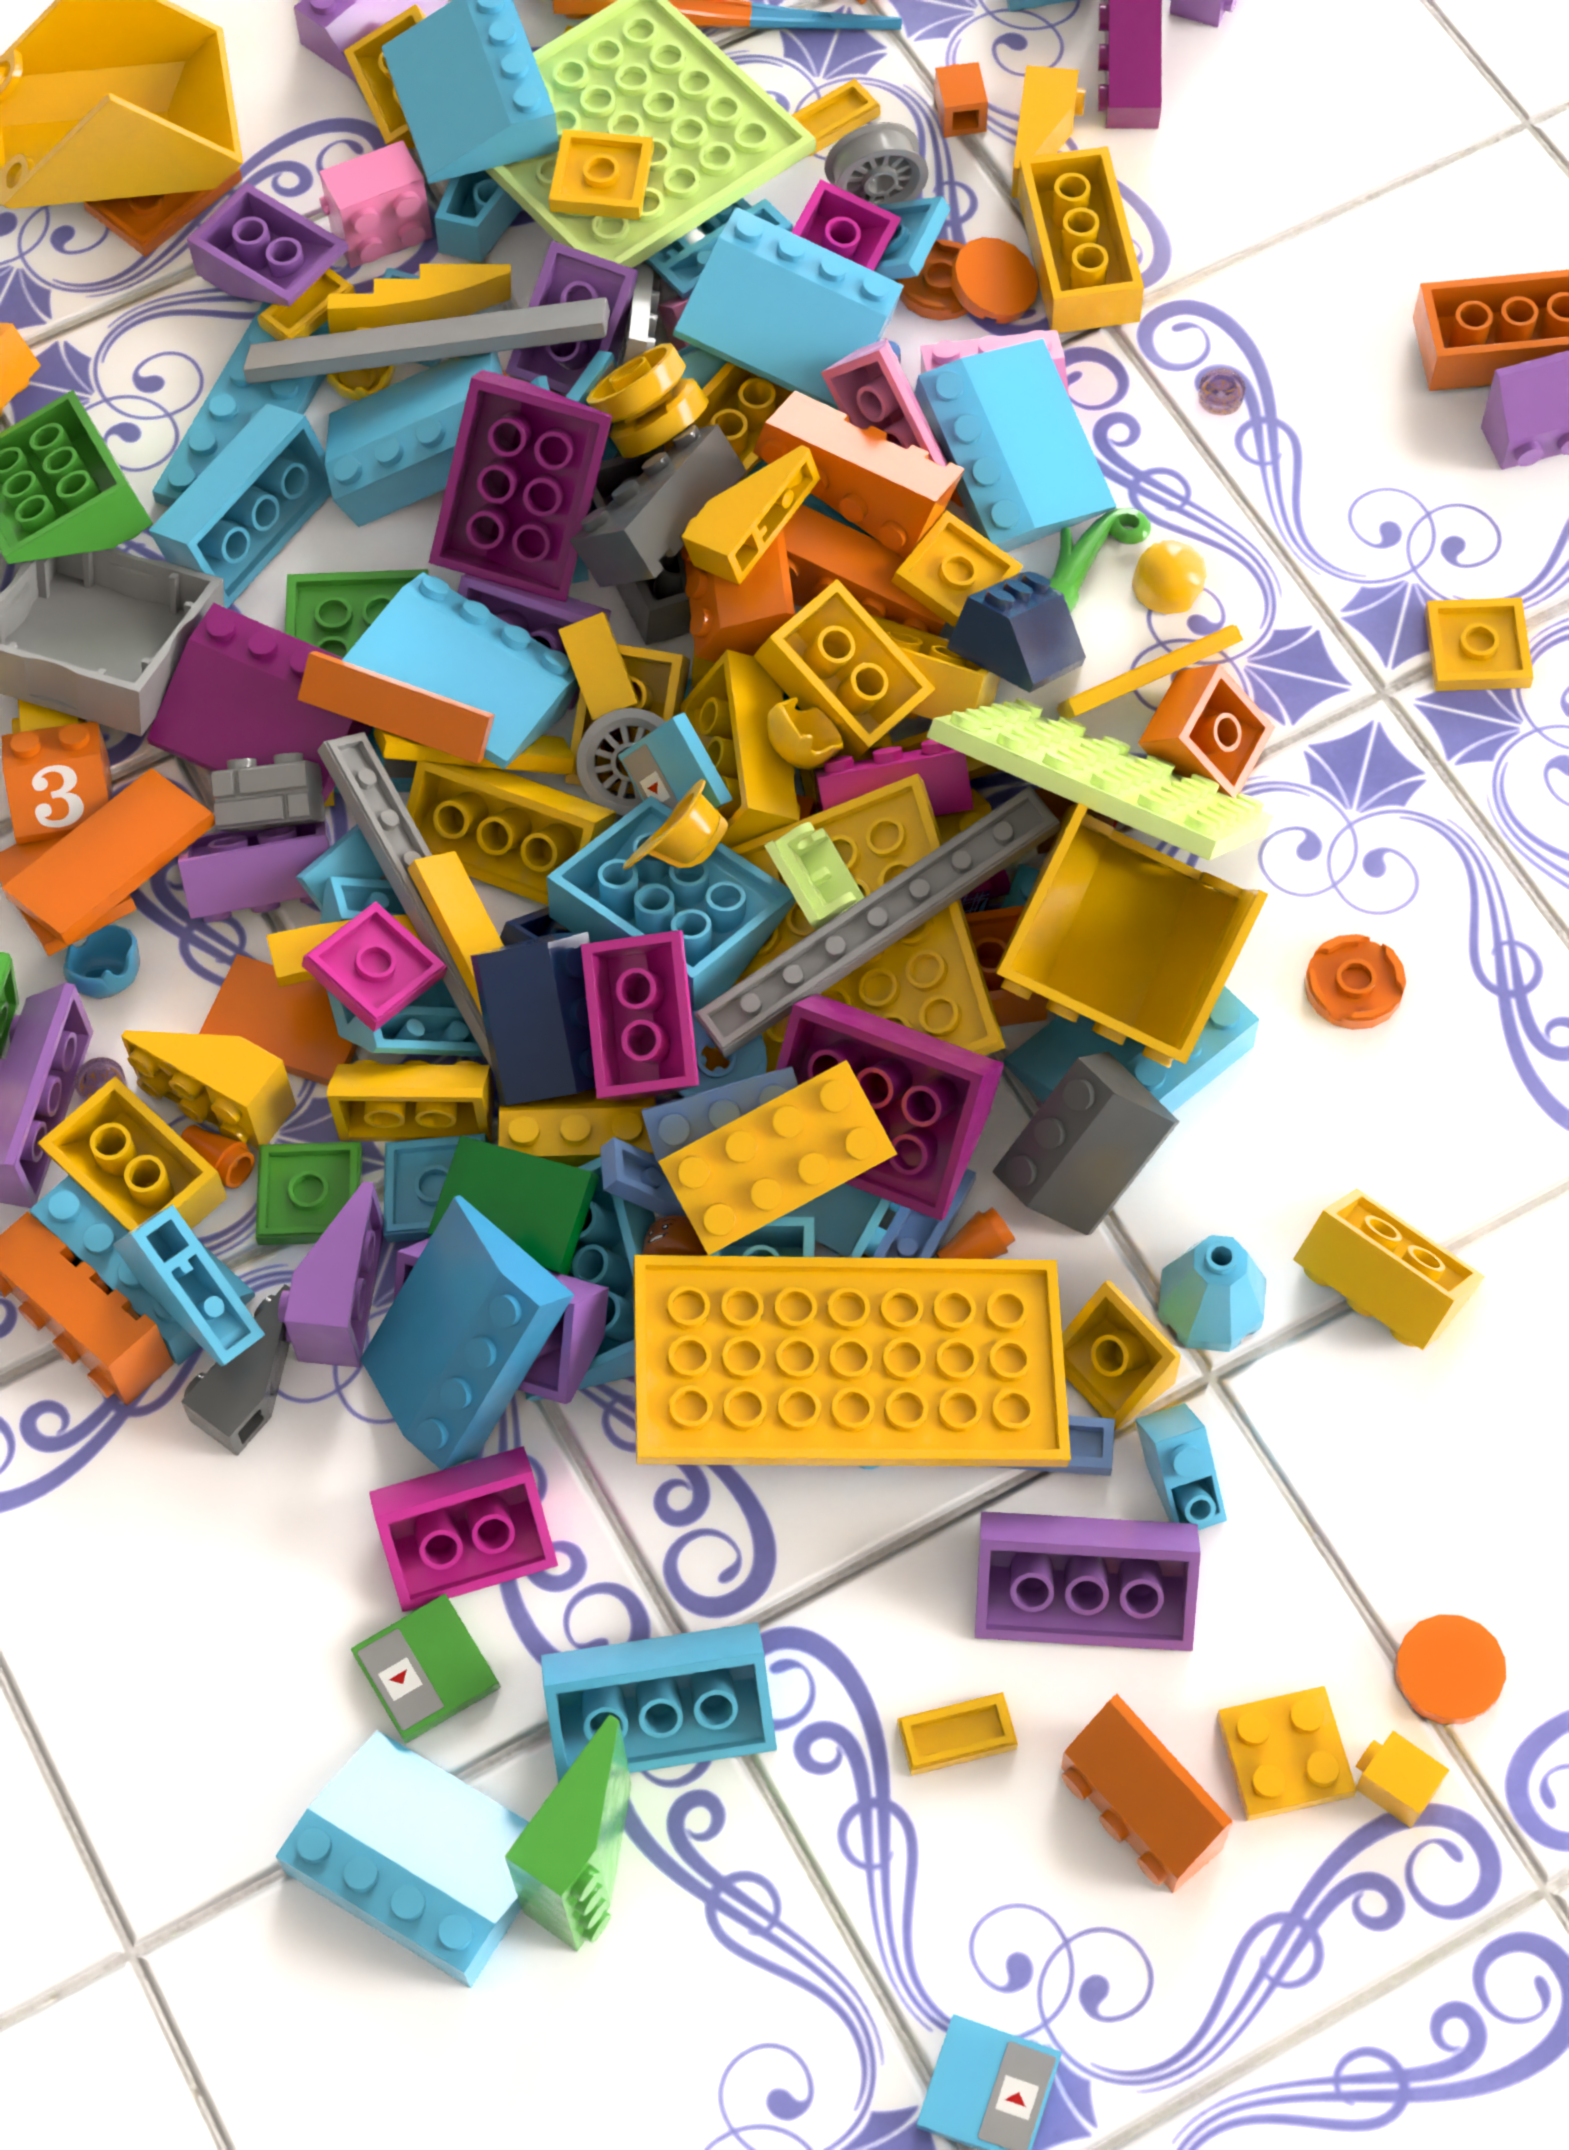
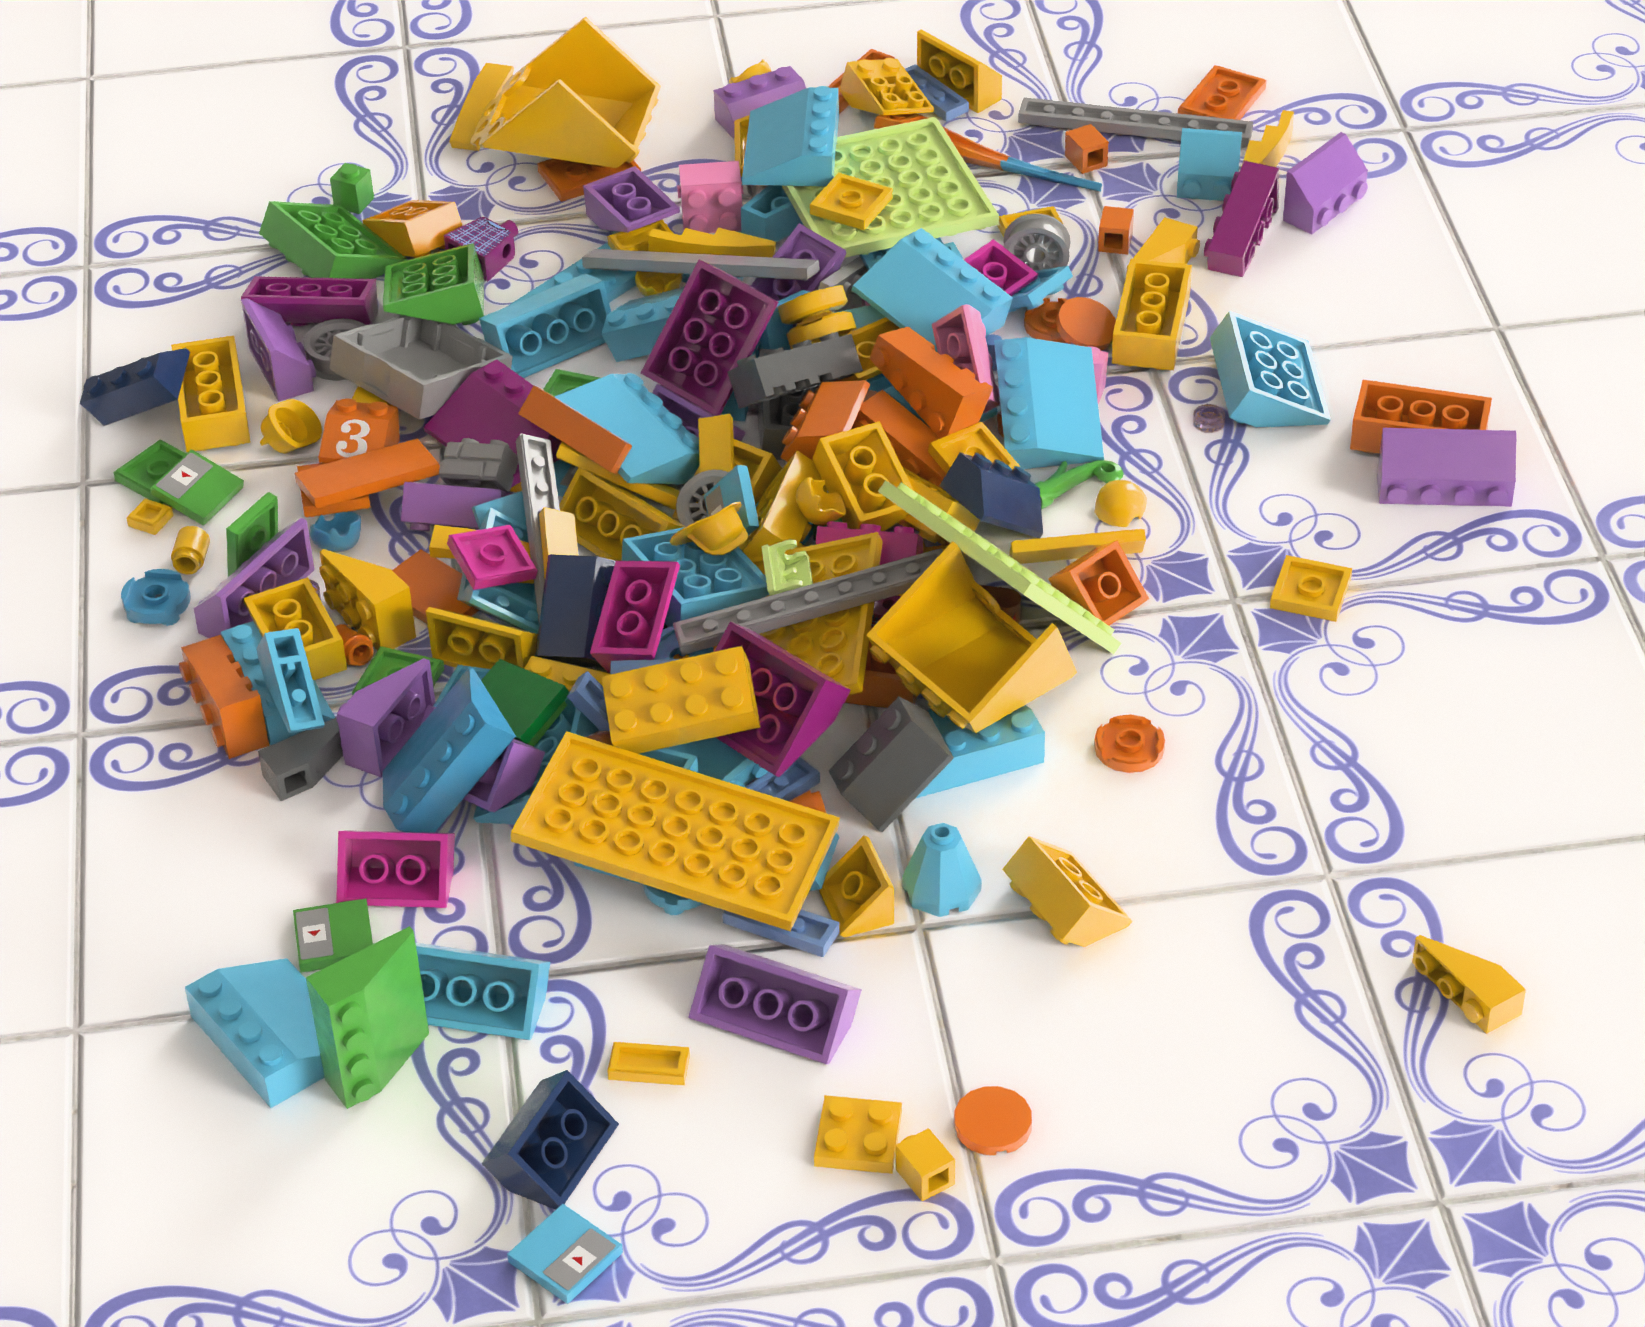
camera: 20 degrees right, 20 degrees down
(76, 364) = (492, 243): none -> magenta torso
(747, 517) = (844, 379): yellow slope -> none
(891, 1919) = (551, 1141): none -> dark blue slope
(1145, 1795) = (747, 1119): orange slope -> none
(1182, 1466) = (870, 961): medium azure slope -> none
(1272, 298) = (1267, 375): none -> medium azure slope

